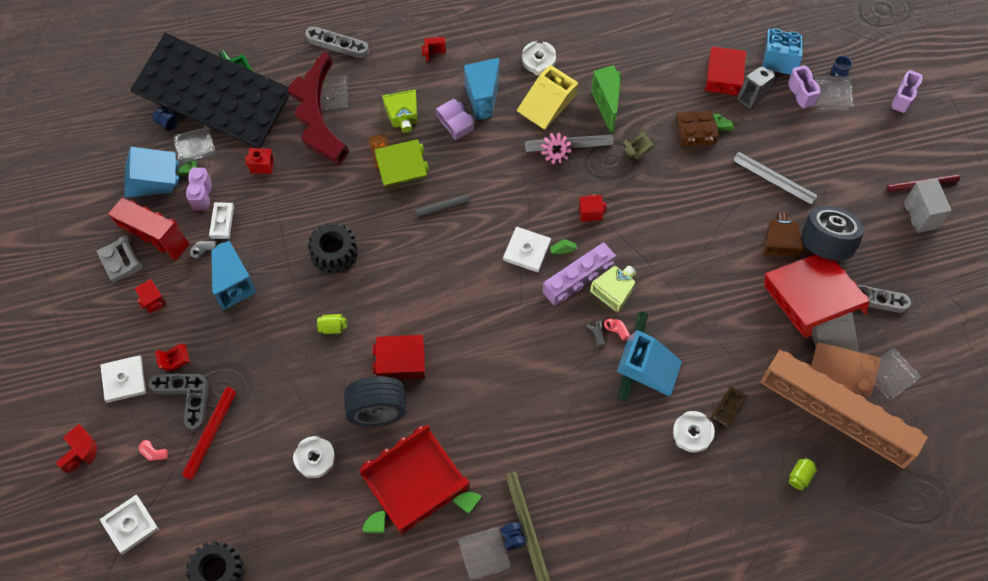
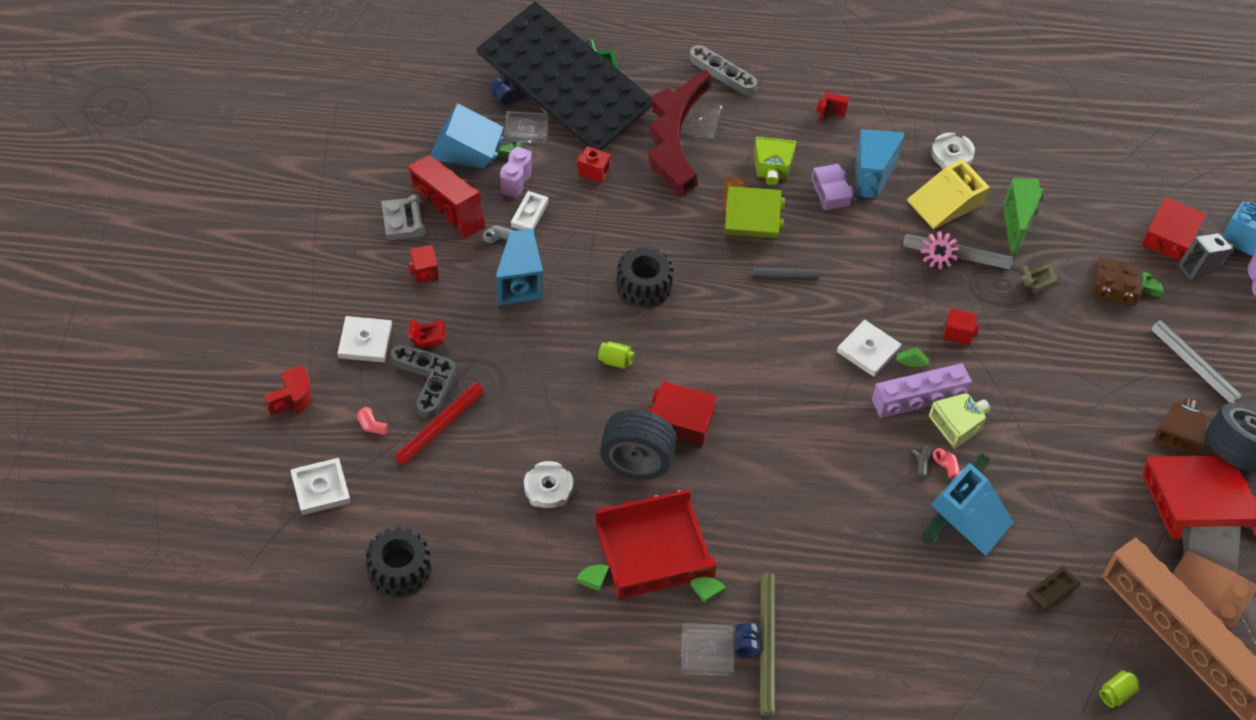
camera: 15 degrees right, 10 degrees down
(701, 424) = (1001, 614): white plate -> none

